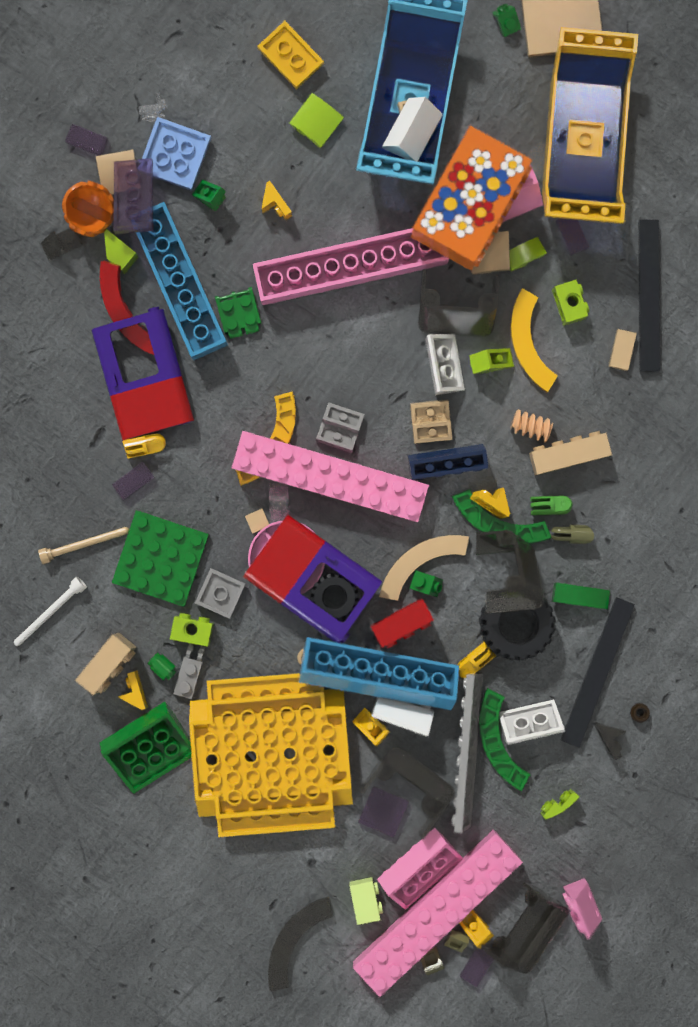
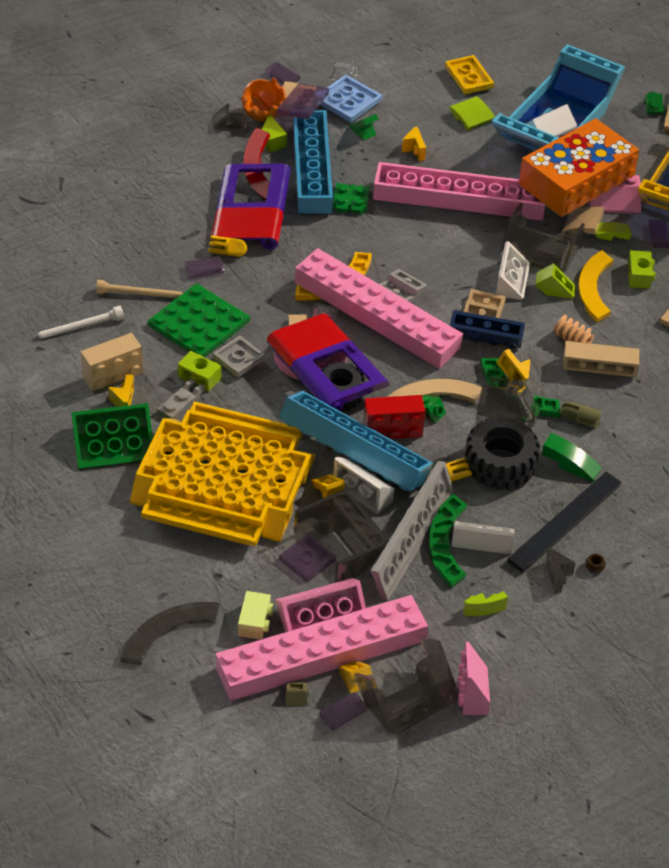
camera: 20 degrees right, 40 degrees down
(162, 666) = (158, 386): green brick -> none
(457, 941) = (330, 679): olive plate -> none
(550, 505) = (568, 389): bright green arm -> none

